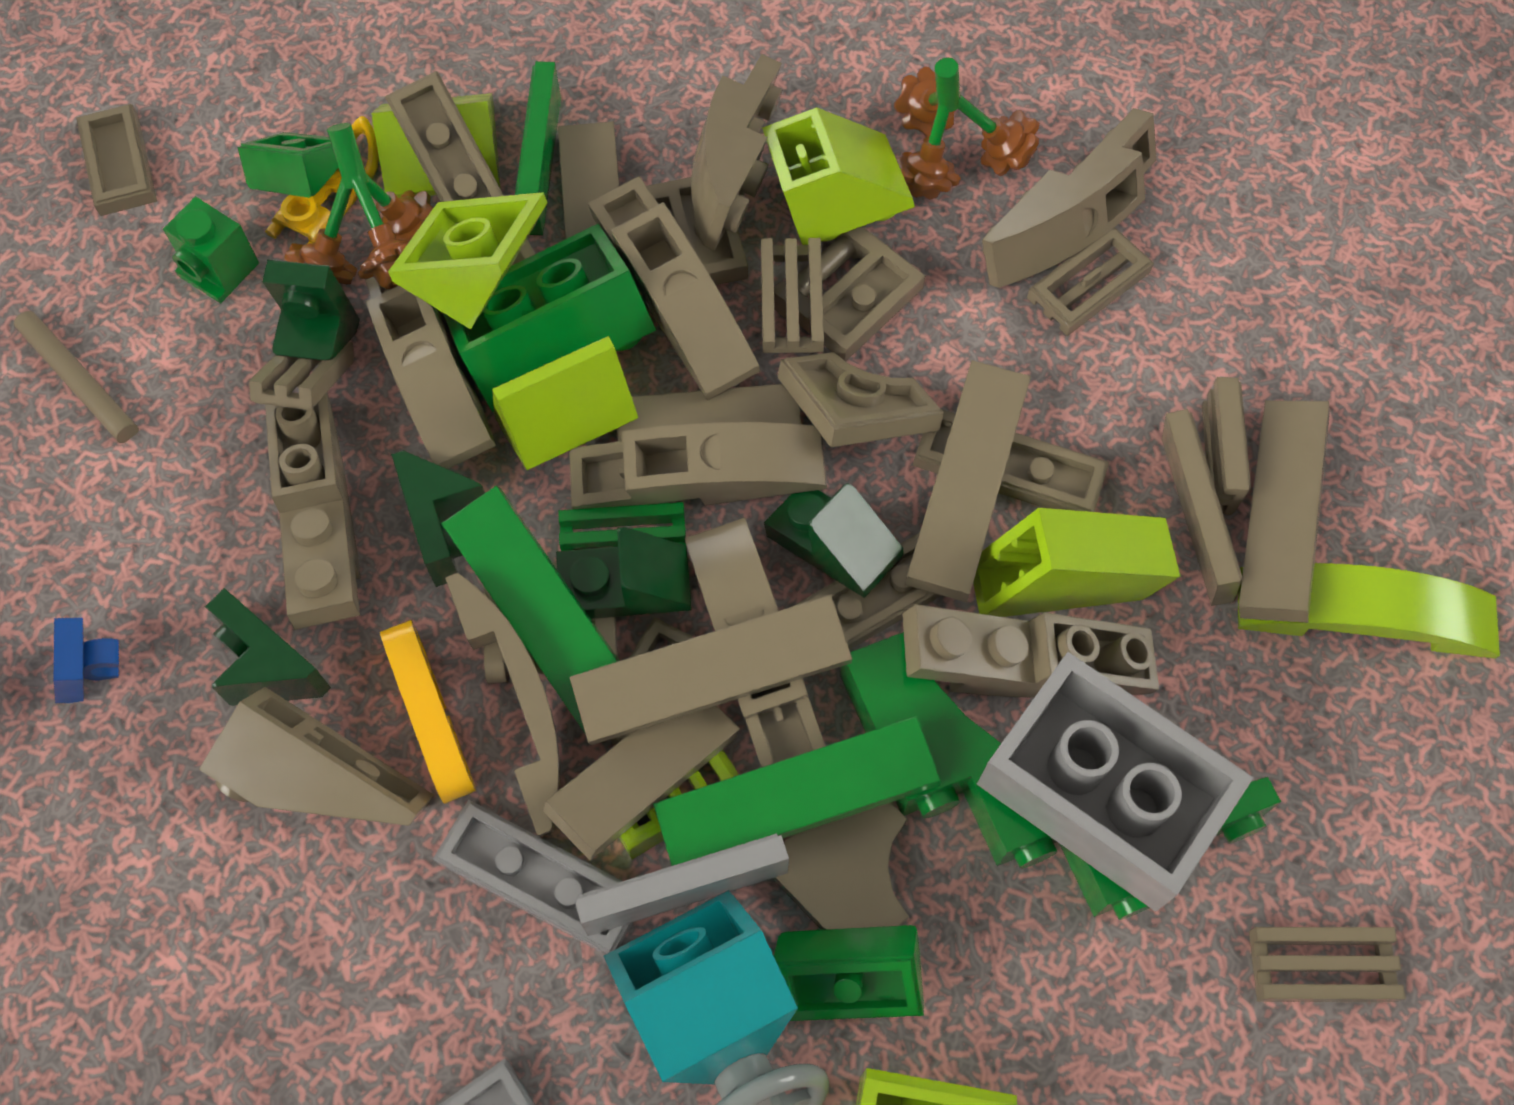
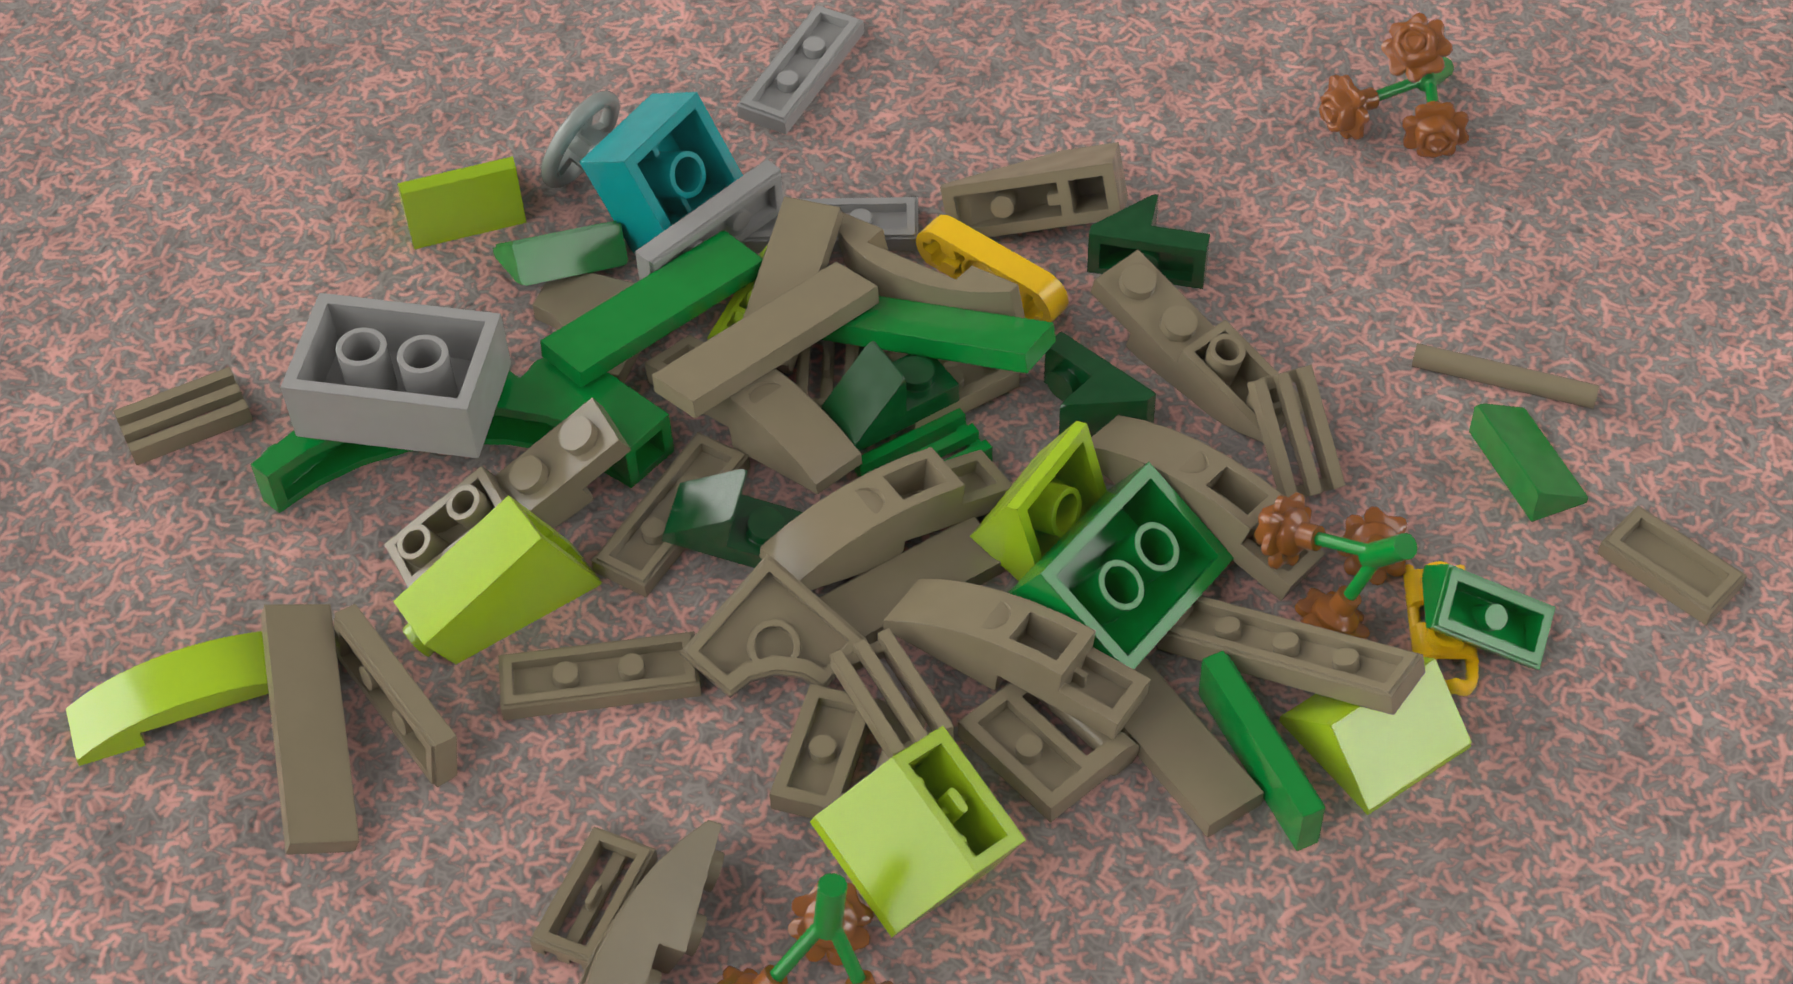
camera: 155 degrees right, 15 degrees down
(79, 660) = (1285, 188): blue tile -> none
(135, 290) = (1525, 460): none -> green slope
(210, 249) = (1487, 486): green brick -> none
(314, 310) = (1330, 470): dark green slope -> none
(466, 252) = (1212, 541): lime slope -> none
(731, 149) = (1040, 785): dark tan slope -> none
(968, 482) = (629, 621): dark tan tile -> none
(1226, 442) = (386, 764): dark tan tile -> none

